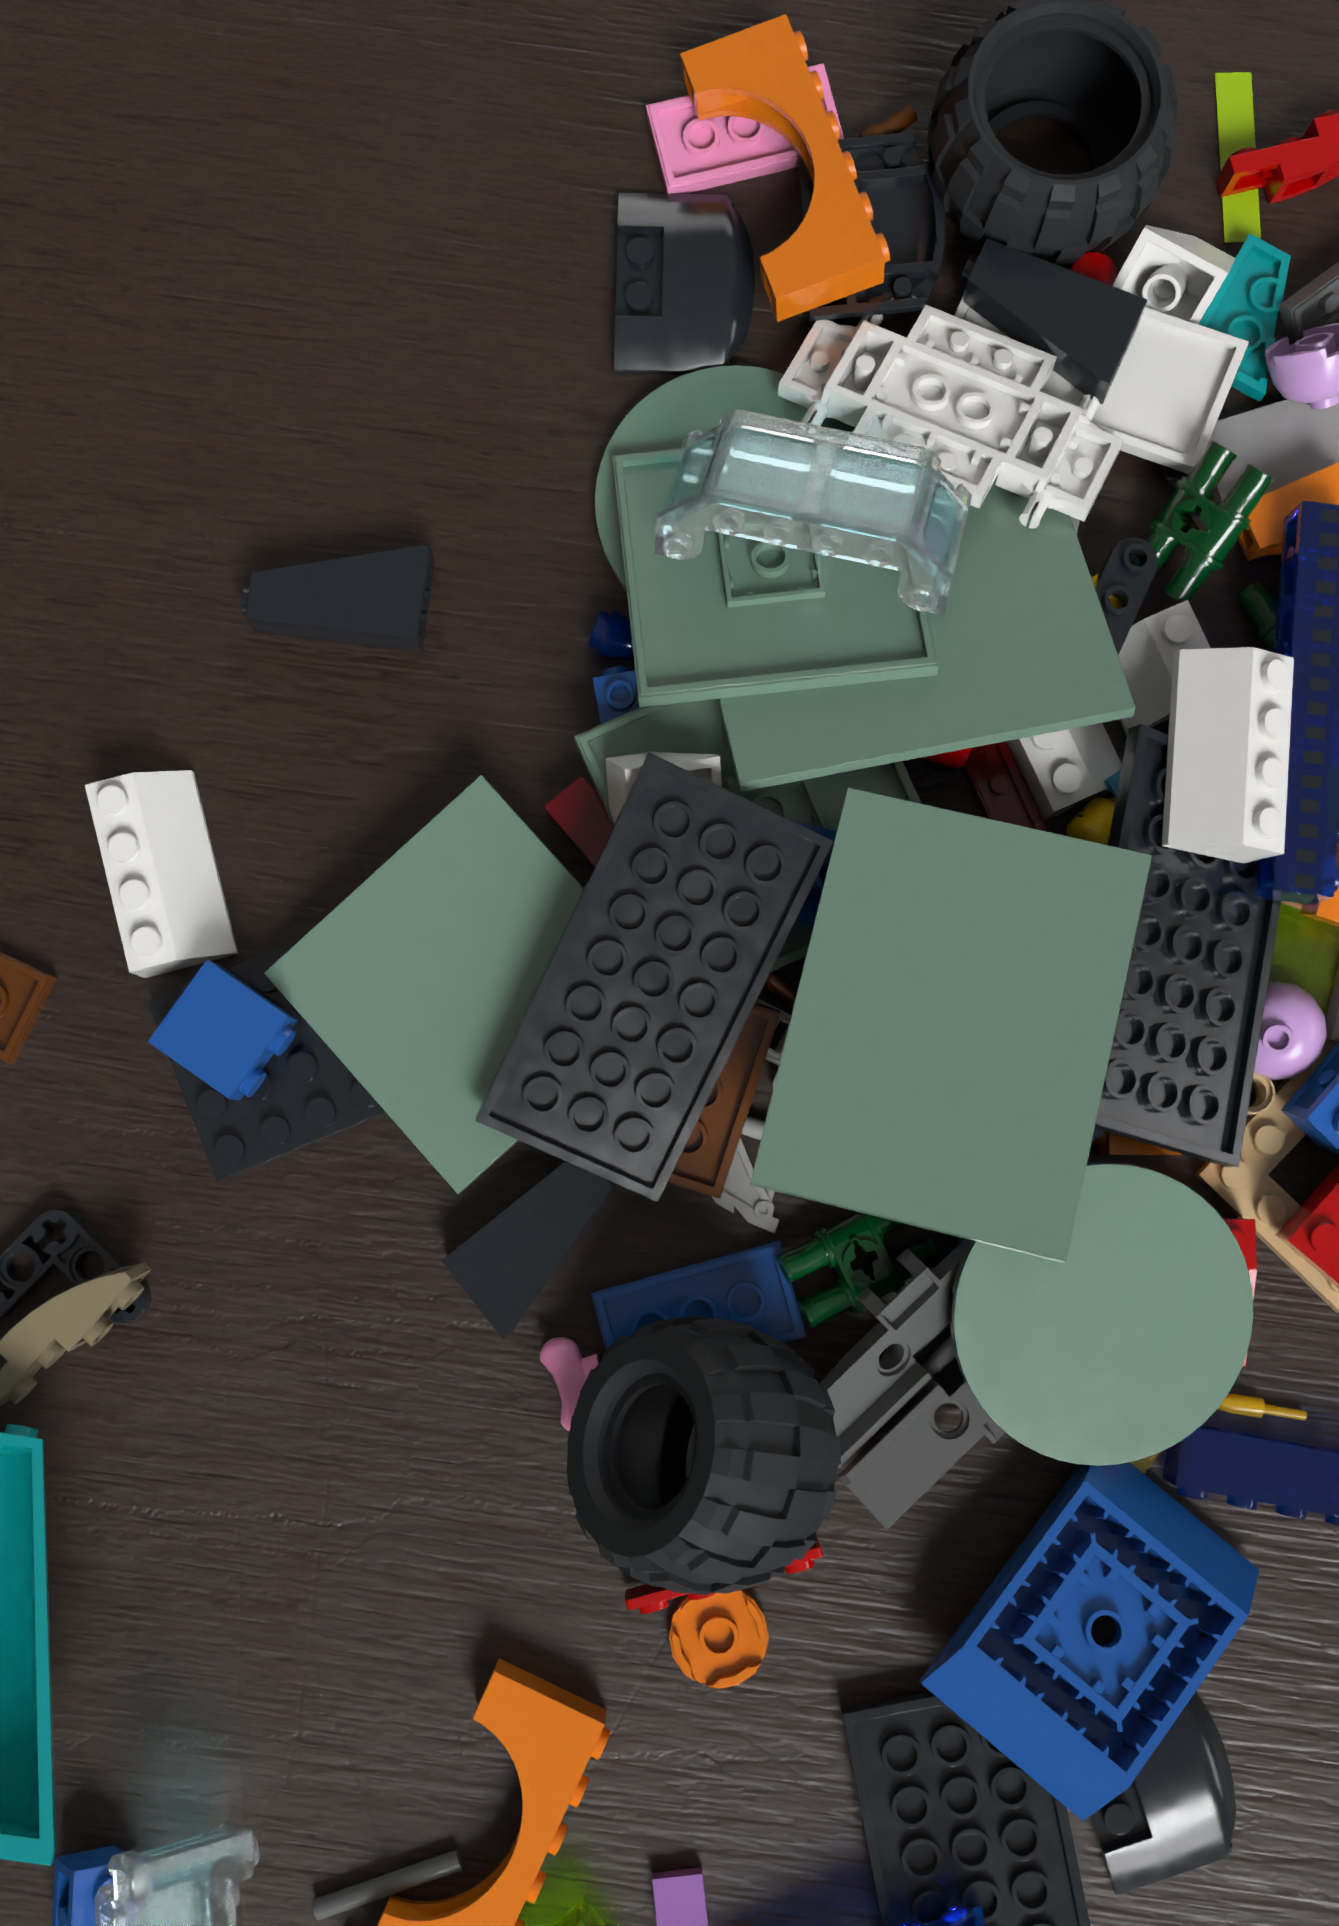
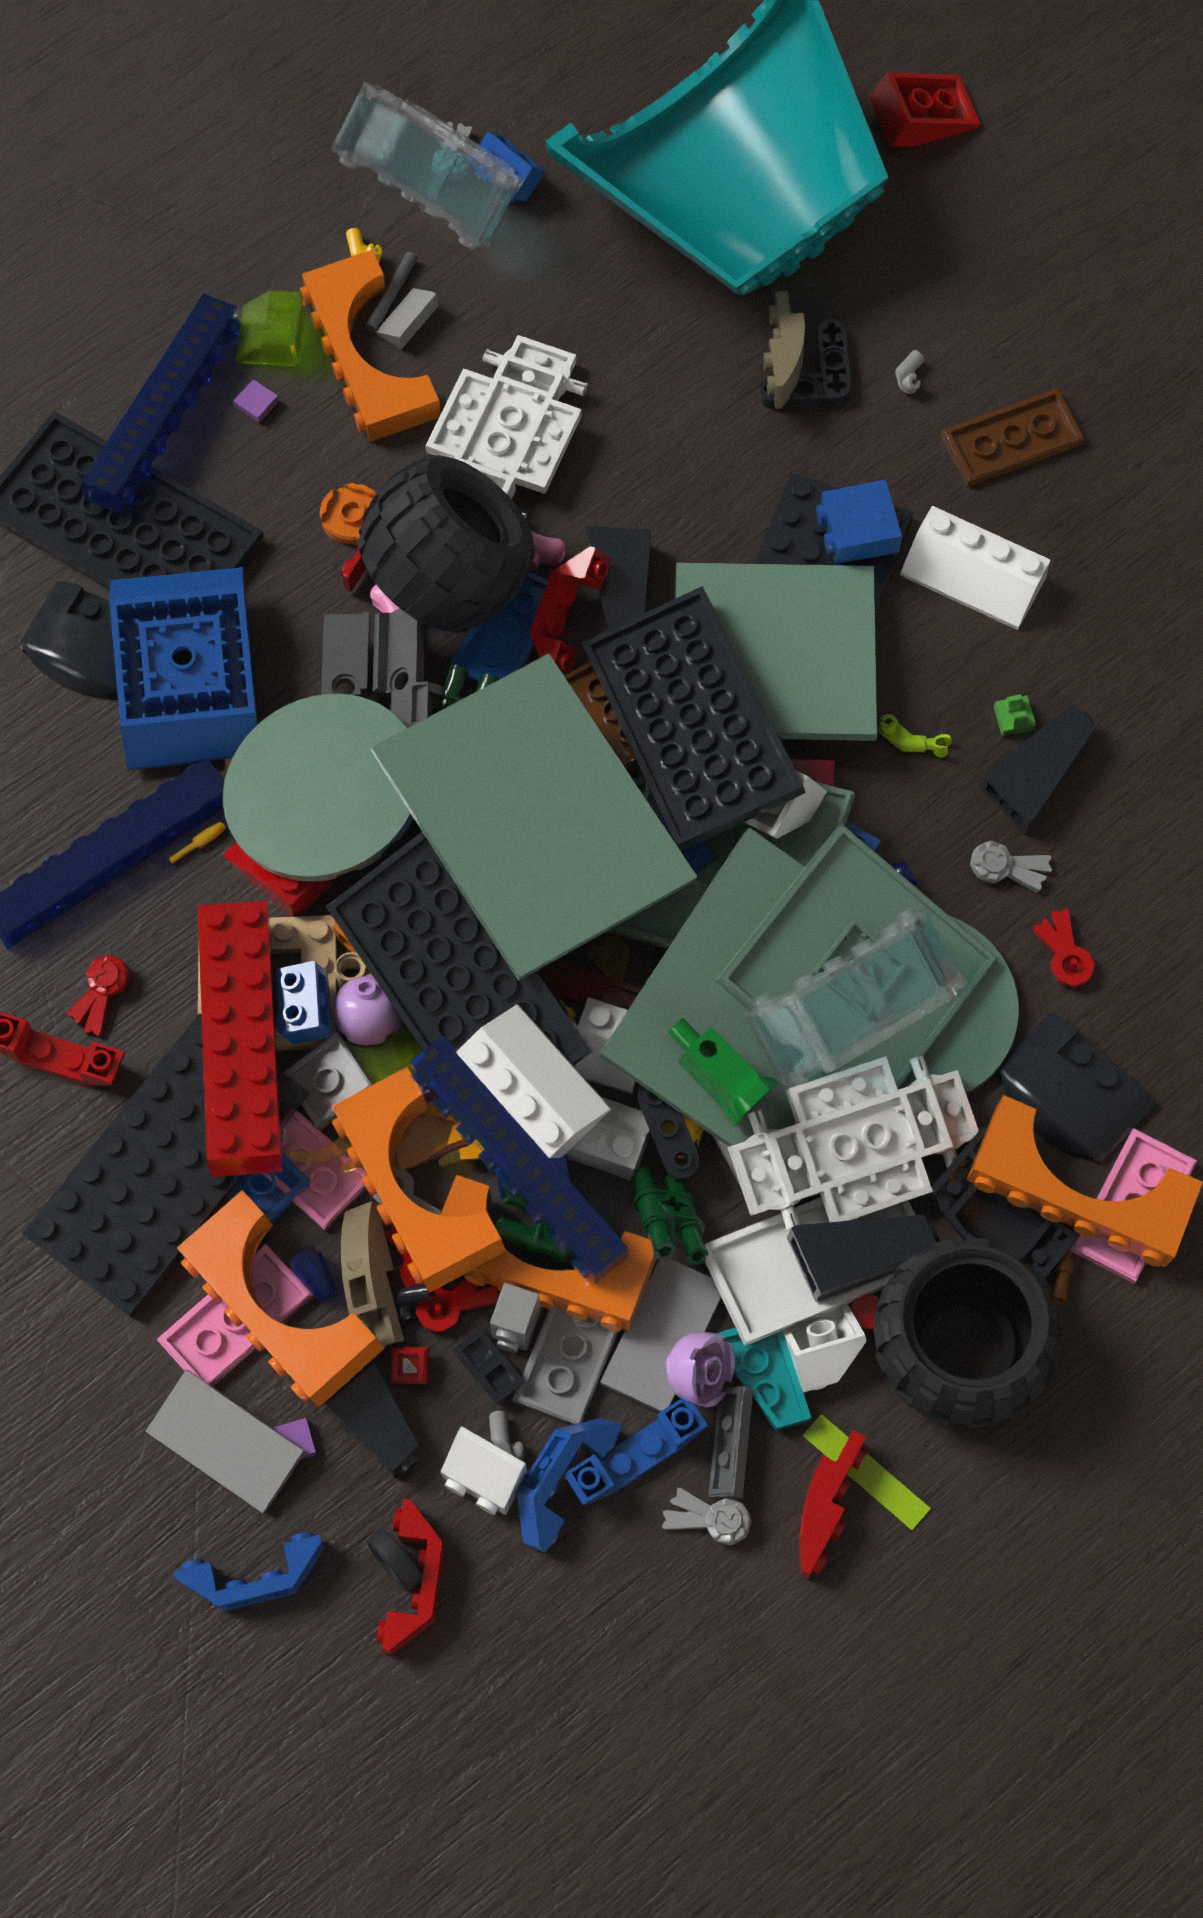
camera: 135 degrees right, 15 degrees down
(305, 683) = (1014, 715): none -> bright green tile
(405, 1829) = (408, 317): none -> light grey slope
(440, 766) = (906, 742): none -> lime arm
(451, 1560) = (512, 422): none -> white piece
(500, 556) = (993, 863): none -> light grey piece
(544, 391) = (1070, 964): none -> red piece
(688, 1229) = (584, 569): none -> red slope
(1034, 548) = (721, 1071): none -> green piece

